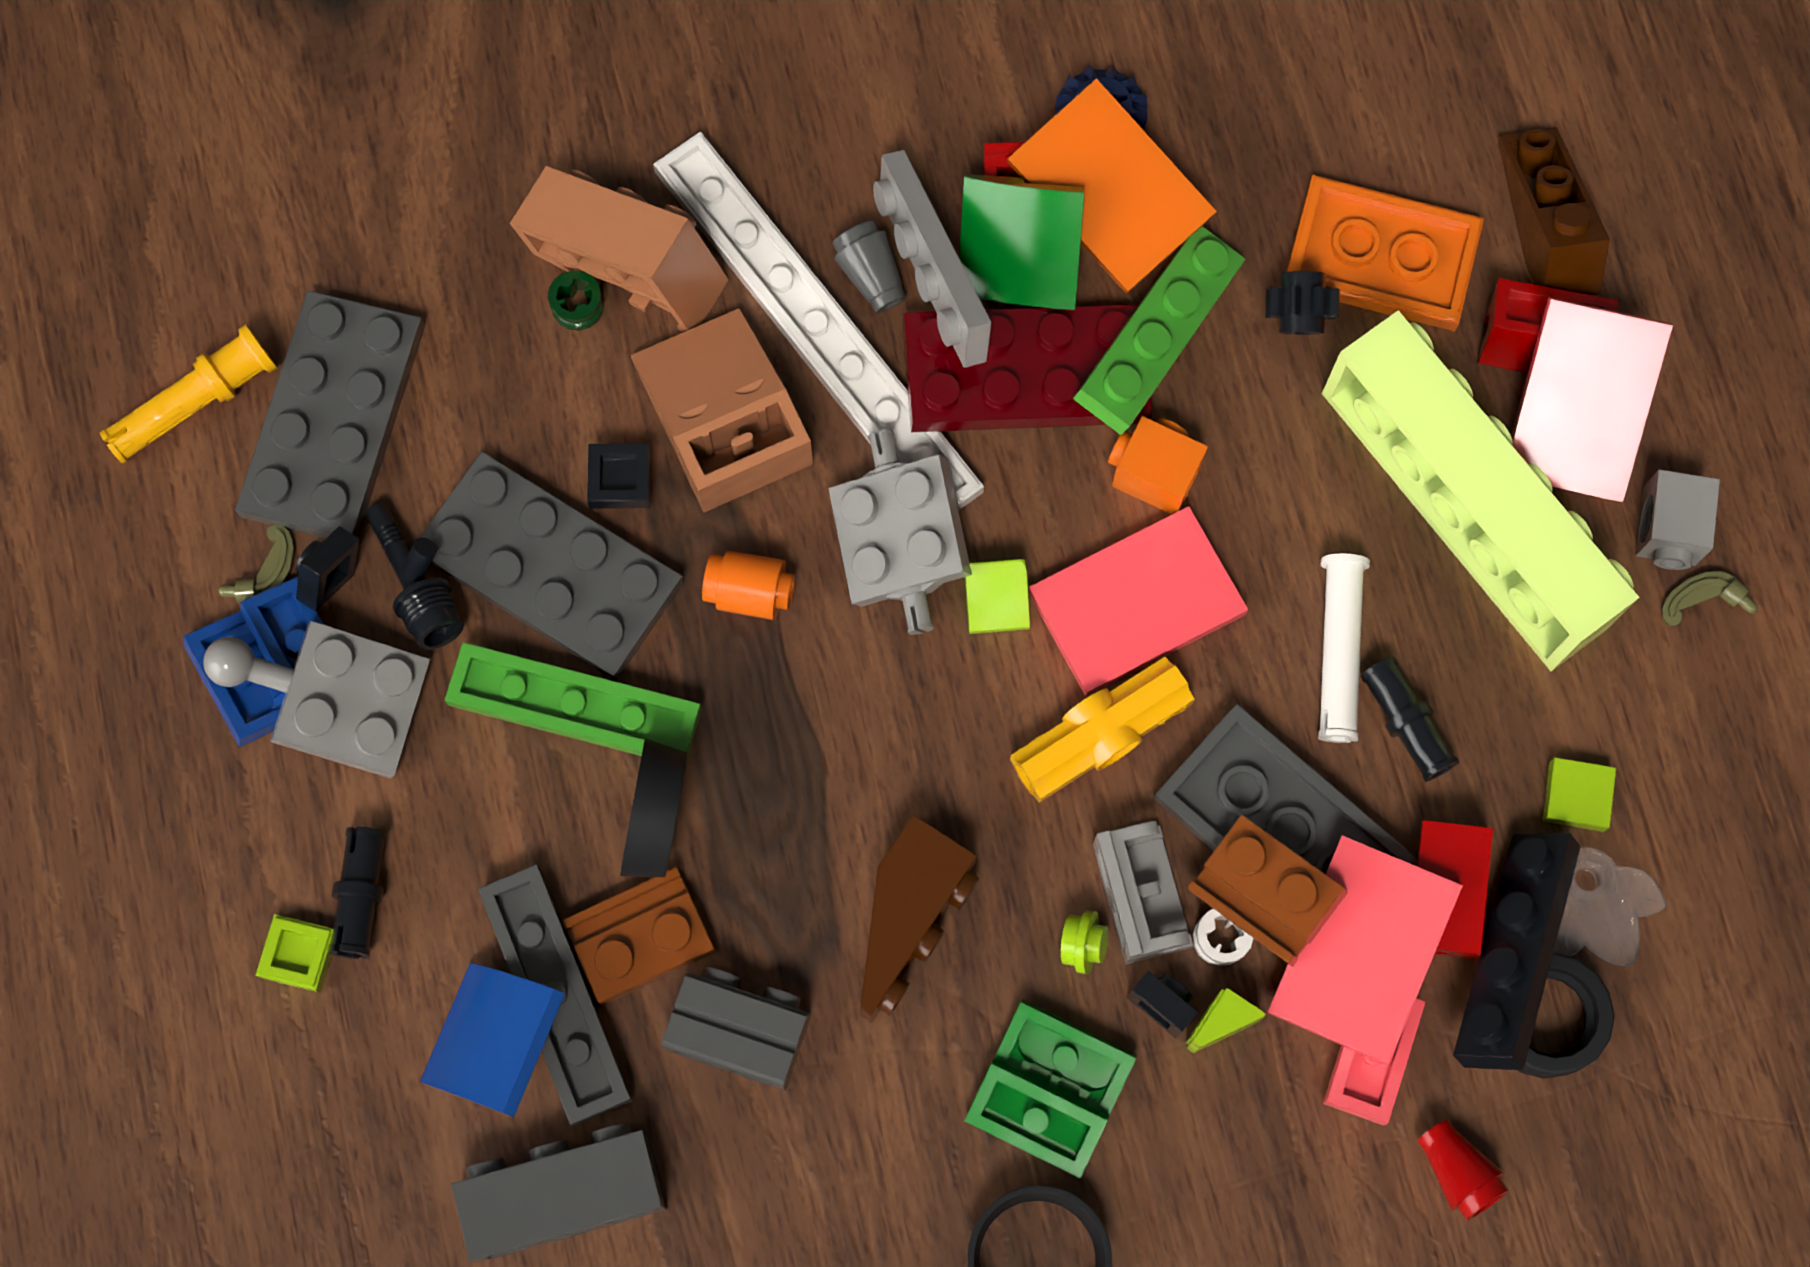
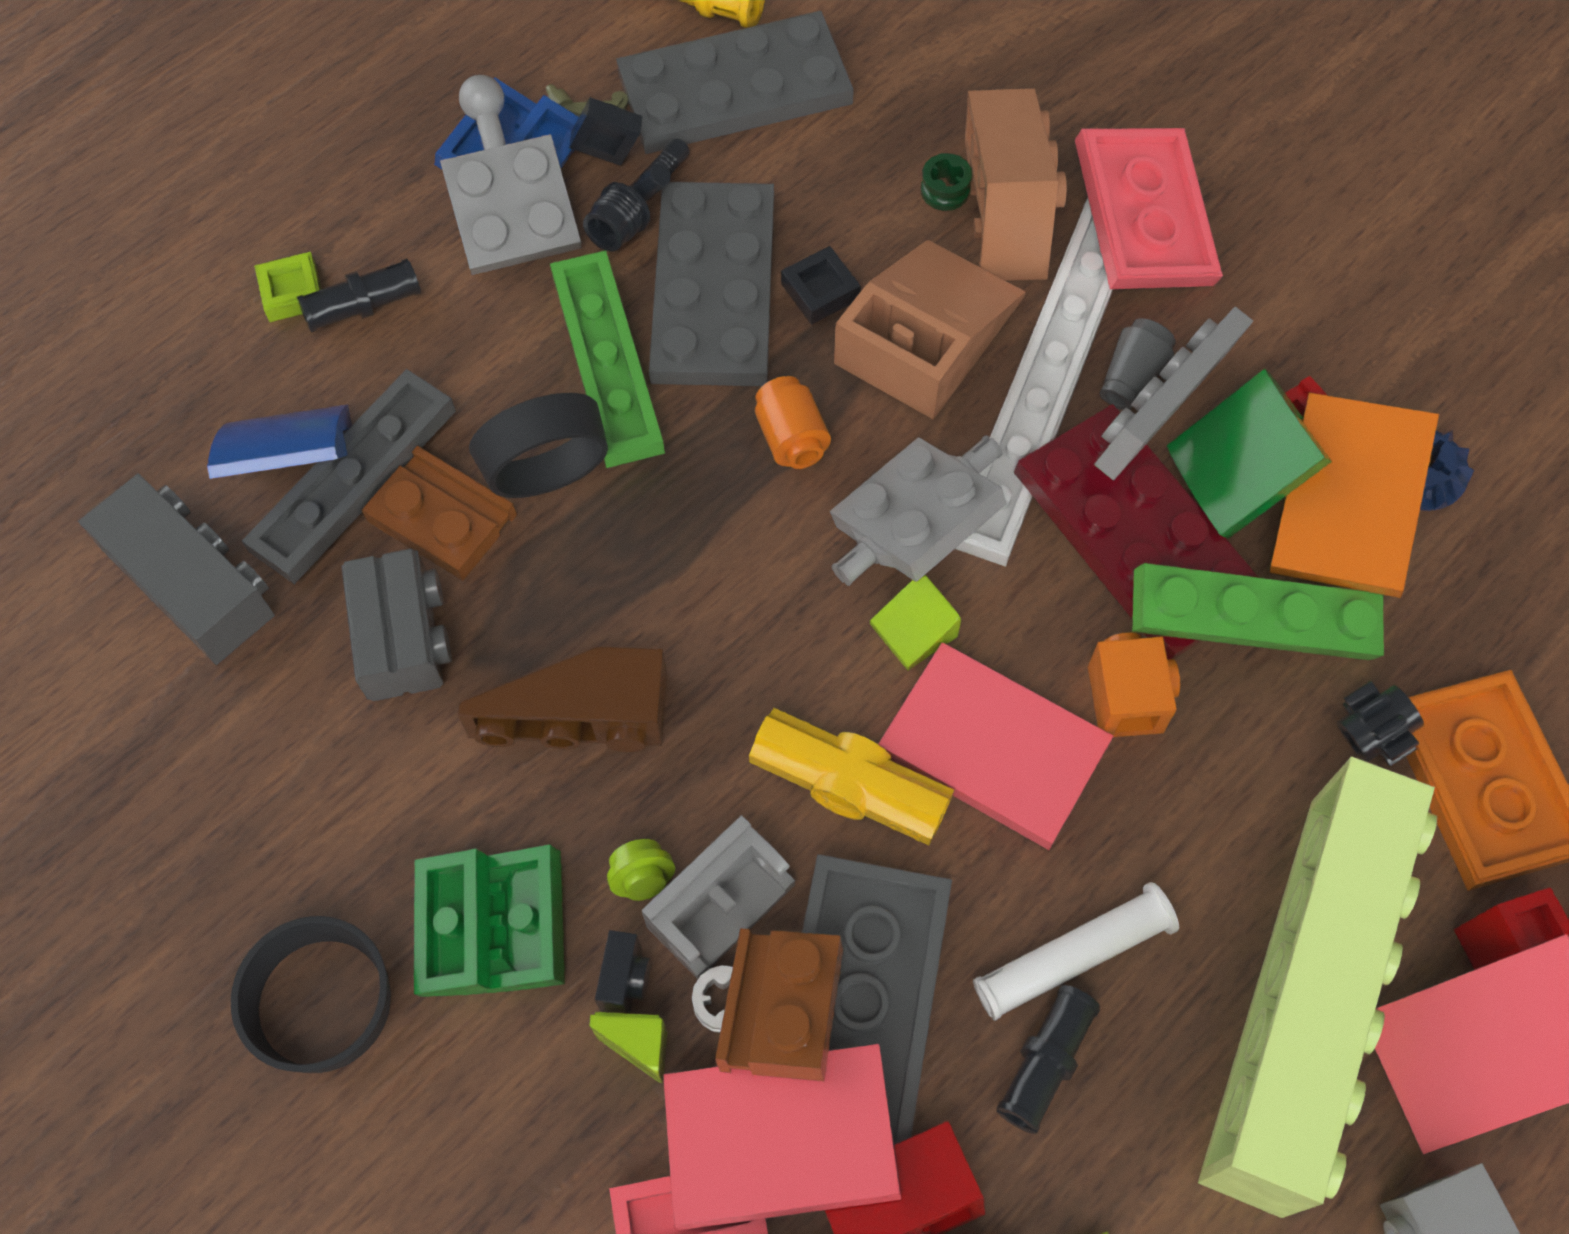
camera: 60 degrees right, 10 degrees down
(725, 153) = (1147, 208): none -> coral tile

